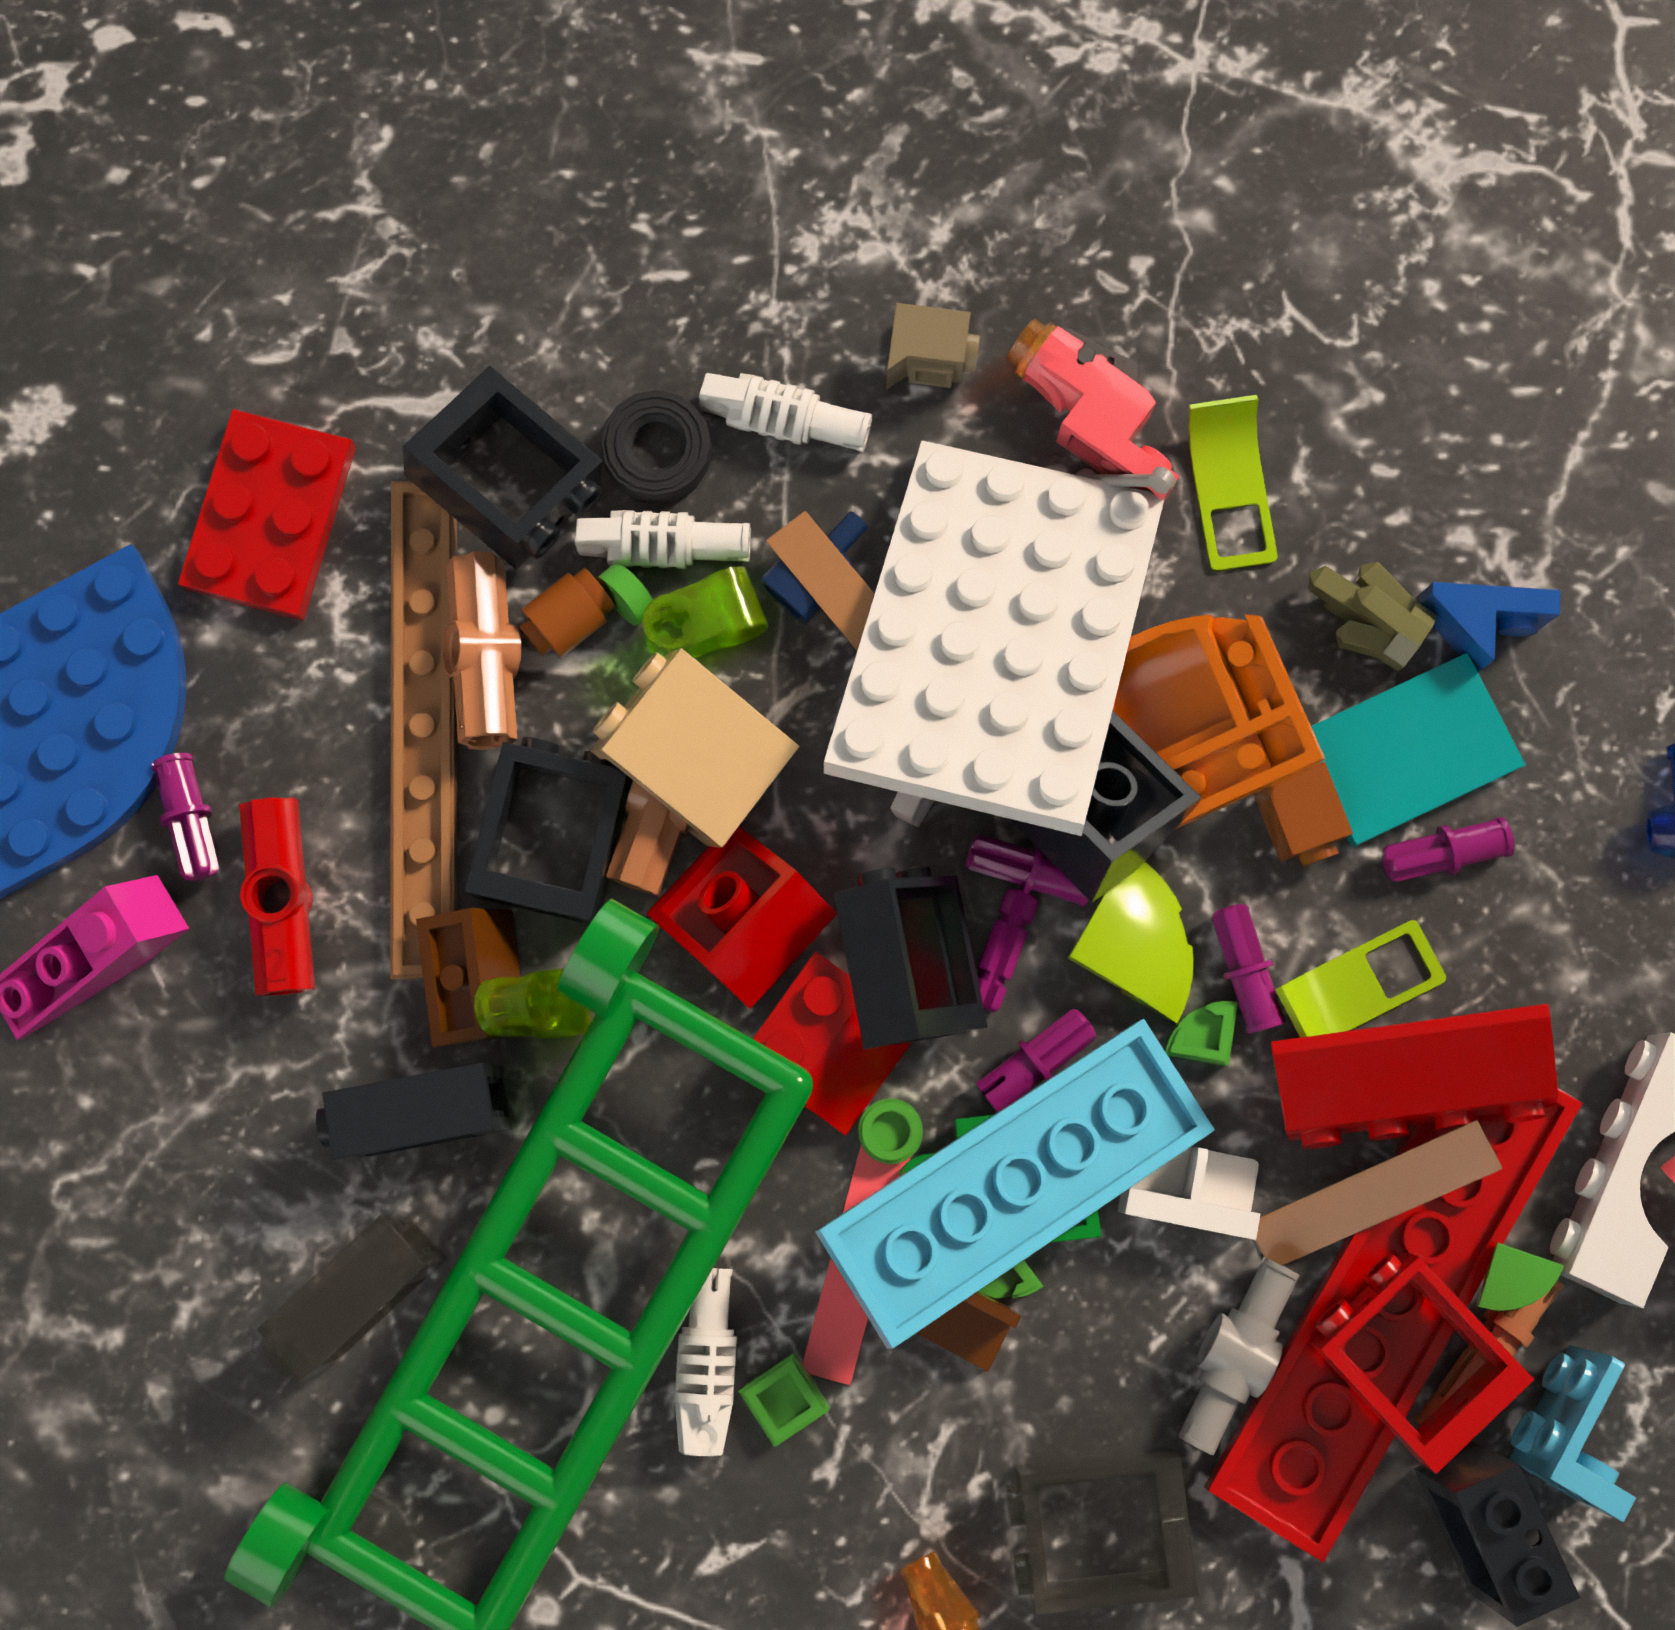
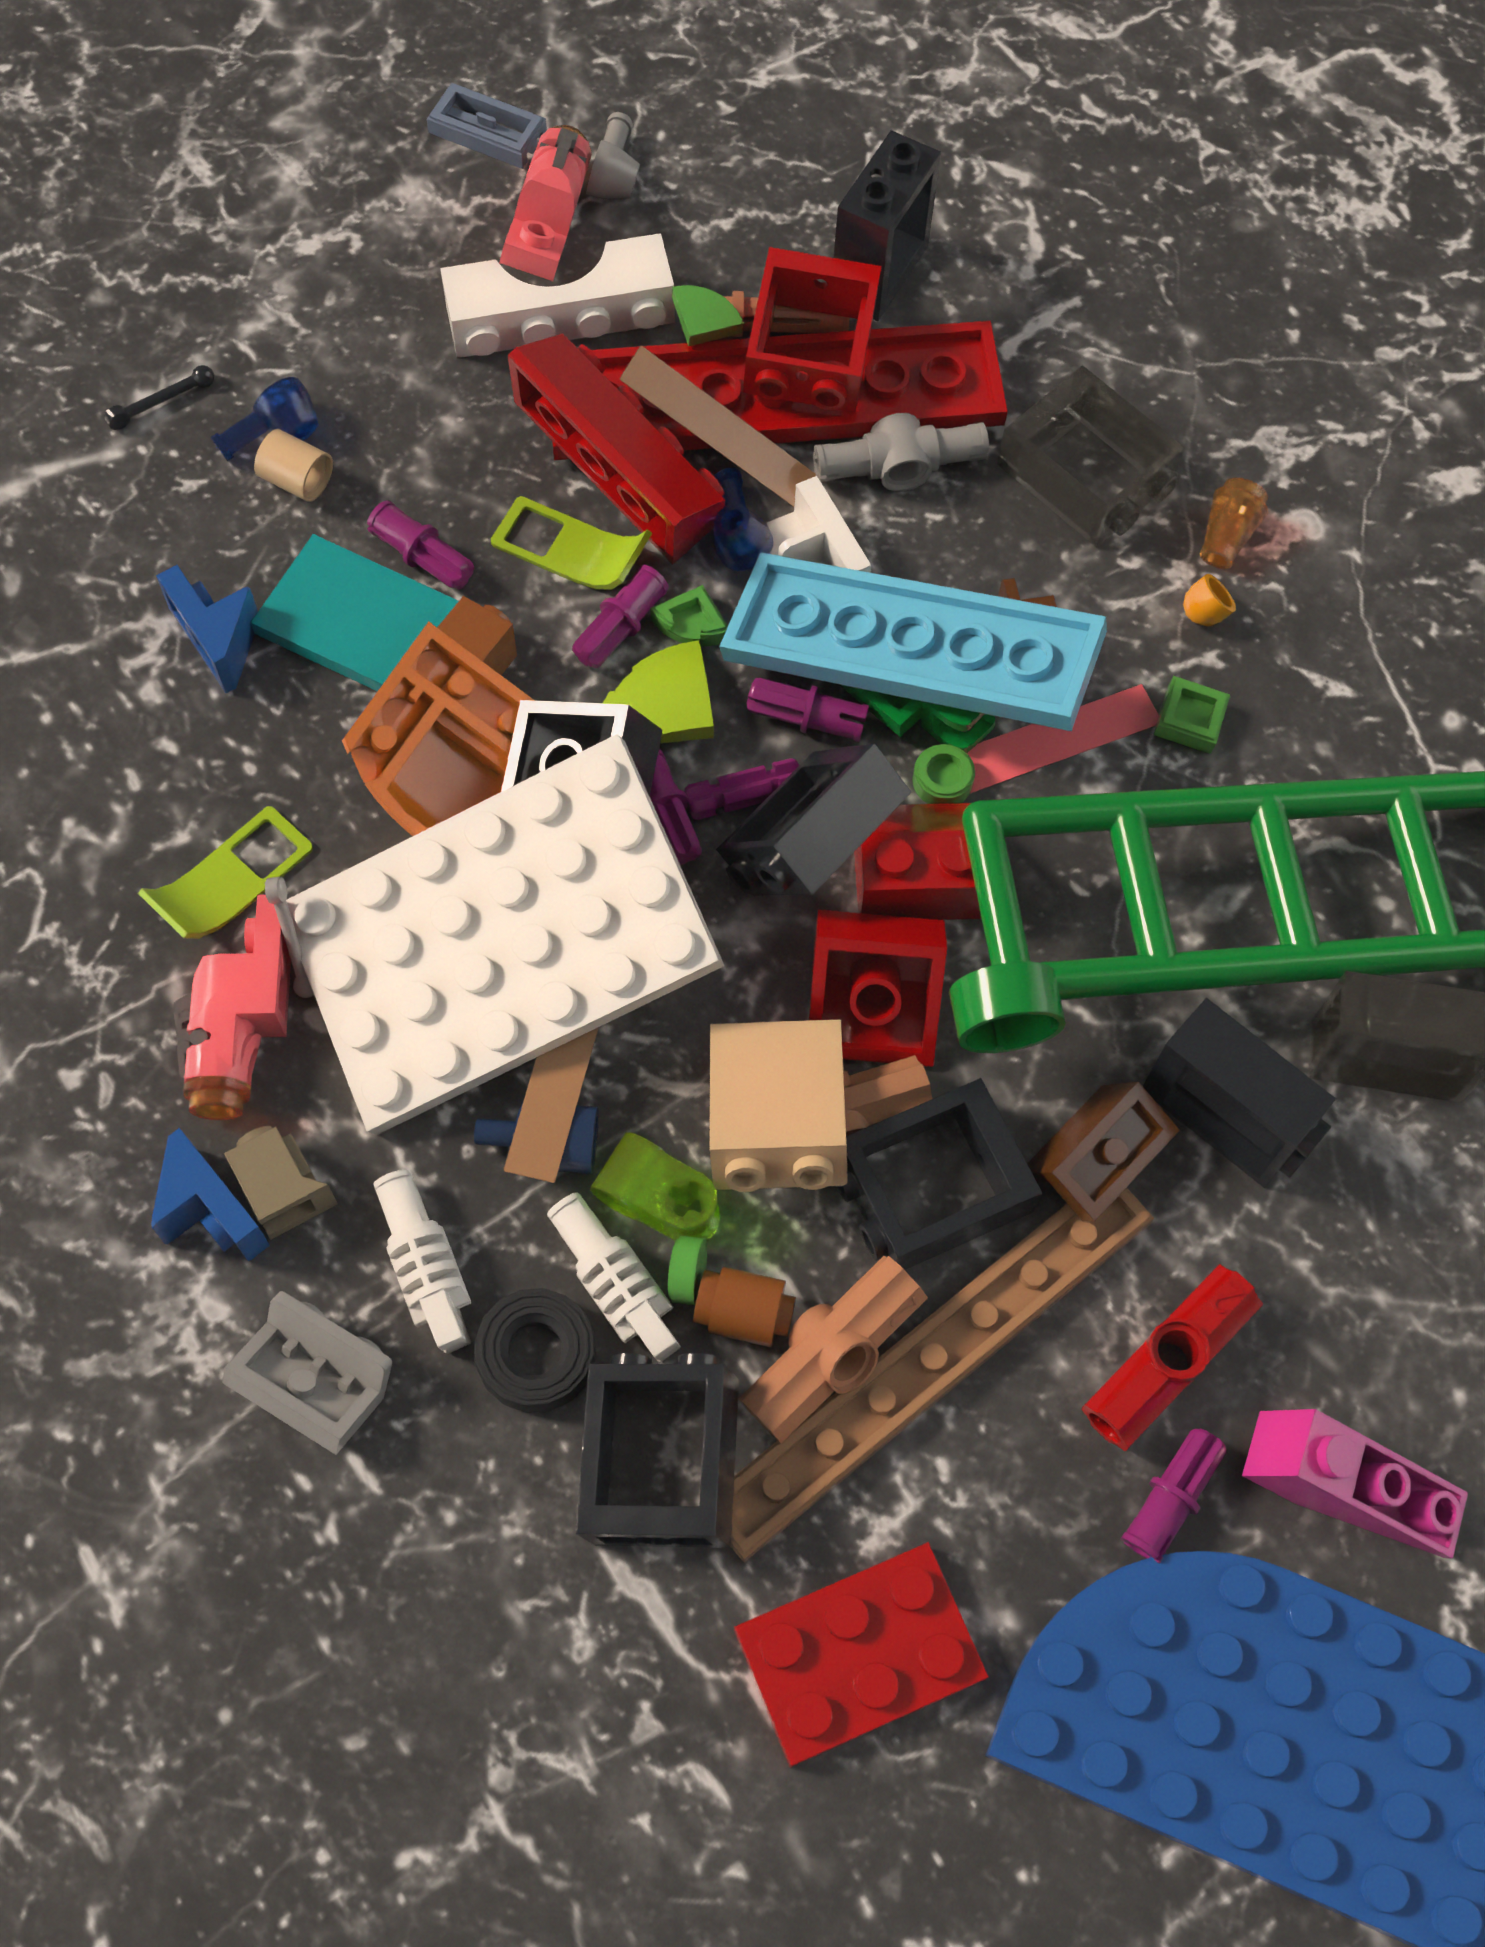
camera: 130 degrees left, 15 degrees down
(529, 1007) = (1075, 1075): clear neon green piece -> none
(706, 1370) = (1237, 761): white hinge -> none
(758, 272) = (310, 1373): none -> light grey bracket
(877, 1512) = (1208, 601): none -> light orange hinge
(971, 285) = (195, 1193): none -> blue slope
(1250, 1154) = (737, 530): none -> clear blue bar
(1378, 614) = (264, 683): olive rock -> none
(1554, 1434) = (782, 220): medium azure bracket -> none
(1613, 795) = (293, 465): none -> tan beam

